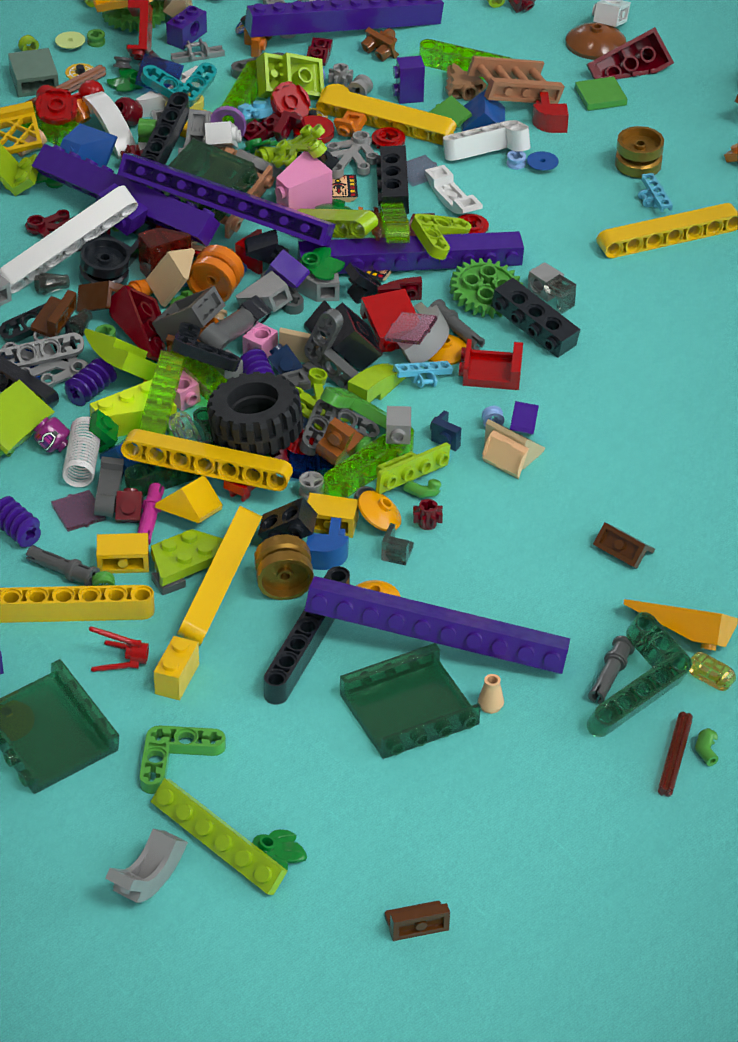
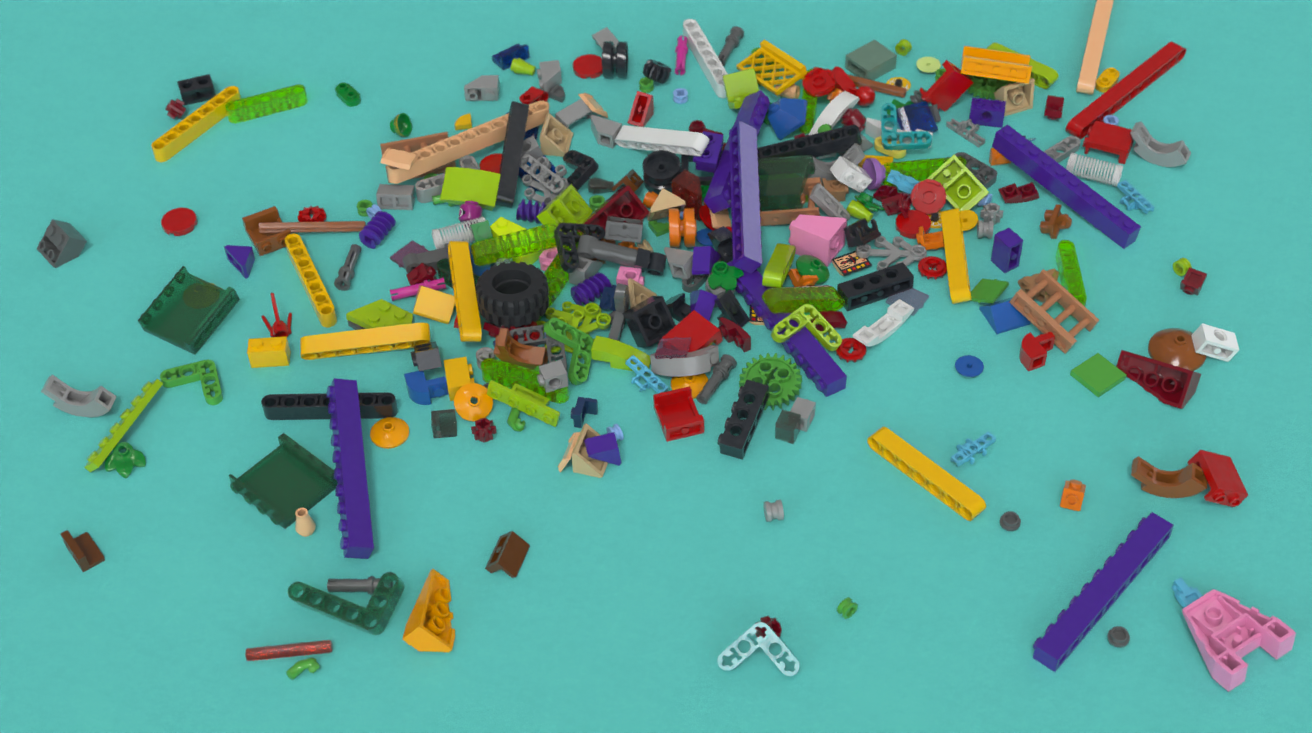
camera: 70 degrees right, 5 degrees up
(48, 283) = (633, 156): clear smoke cone -> none
(55, 314) = (576, 166): reddish brown panel -> none
(103, 577) = (338, 291): bright green bush -> none
(123, 553) = (370, 286): yellow brick -> none
(283, 567) = (379, 368): pearl gold wheel -> none
(287, 150) = (842, 218): lime plant -> none
(298, 378) = (591, 310): dark grey tile -> none
(341, 292) = (702, 302): none -> dark purple slope
(486, 139) = (968, 322): white beam -> none
(516, 160) = (960, 345): light blue bush -> none
(639, 151) = (1016, 419): pearl gold wheel -> none
(662, 341) = (773, 510): none -> light grey wheel
(712, 671) = (382, 647): clear yellow beam -> none

